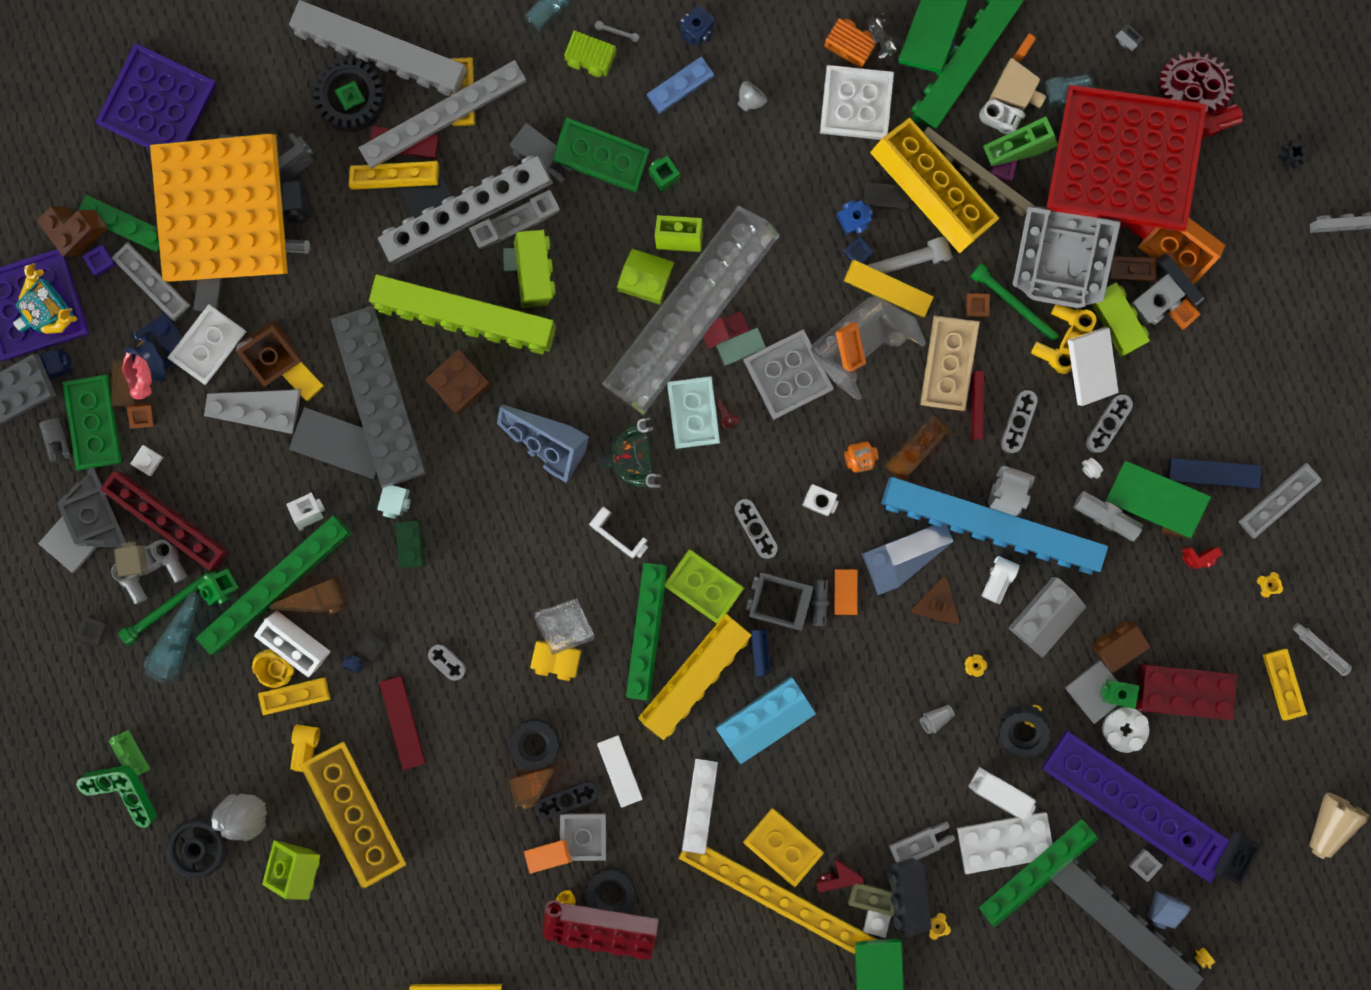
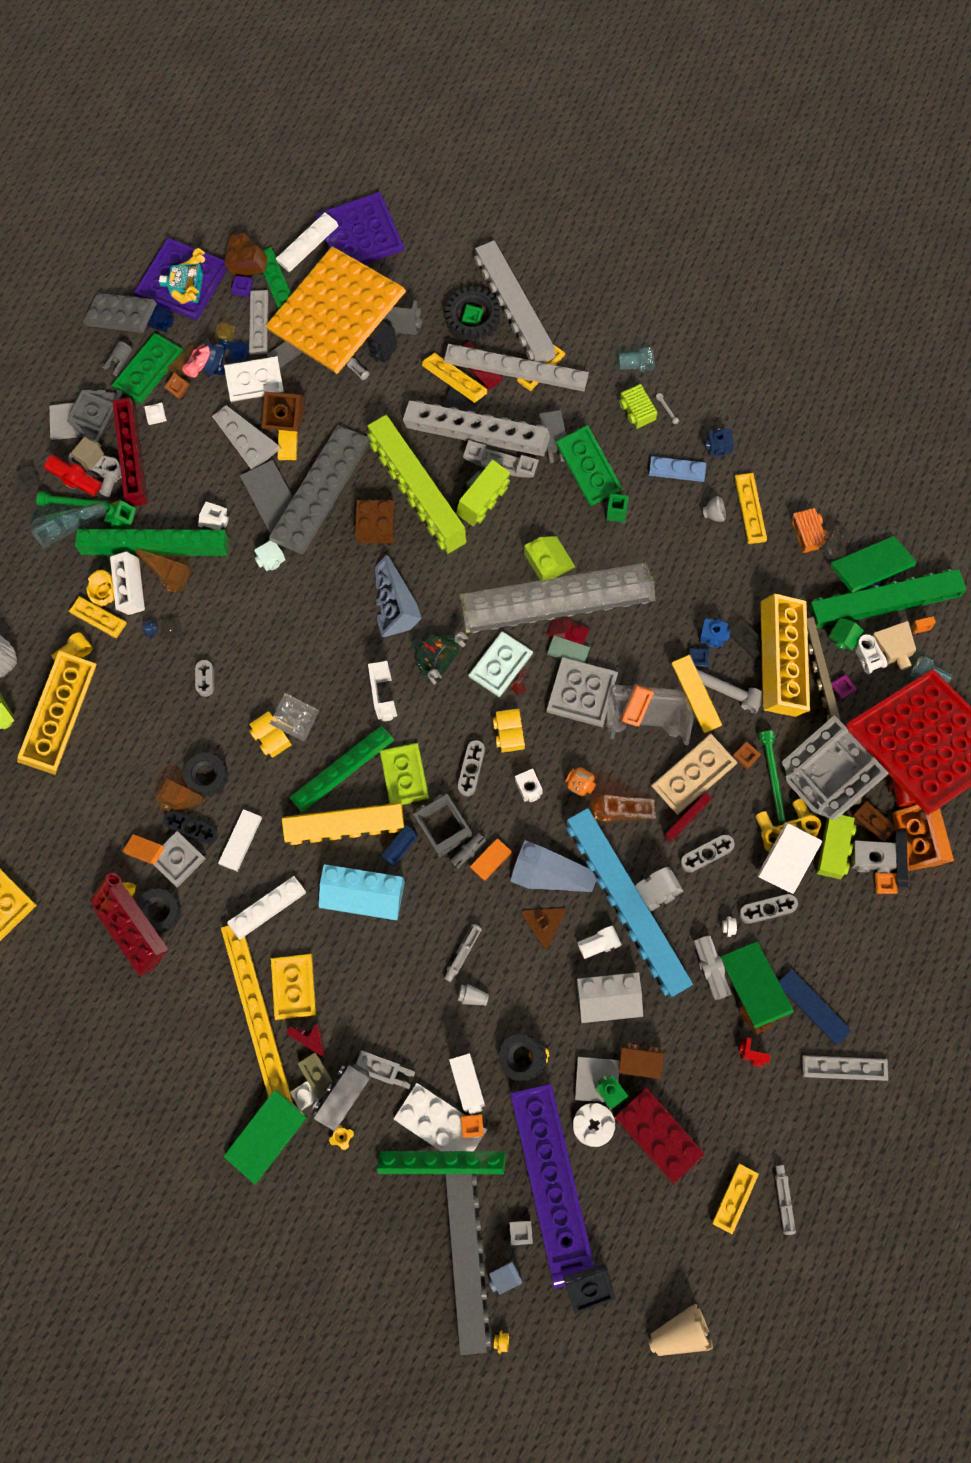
camera: 50 degrees right, 15 degrees down
(117, 159) = (307, 242): none -> white plate
(130, 322) = (224, 331): none -> clear yellow tile
(137, 592) = (72, 475): none -> red piece
(402, 722) = (142, 690): dark red tile -> none
(410, 544) = (253, 588): dark green brick -> none
(678, 233) = (593, 549): lime brick -> none
(758, 466) = (510, 730): none -> yellow brick
(778, 66) = (750, 508): none -> yellow tile
(856, 102) = (780, 567): white plate -> none
(895, 690) = (462, 952): none -> light grey piece
(967, 118) = (845, 634): none -> green brick
(976, 659) = (531, 990): yellow plate -> none
(1022, 143) = (871, 681): bright green slope -> none
(1036, 823) = (472, 1126): none -> orange tile
(1276, 583) = (792, 1118): yellow plate -> none

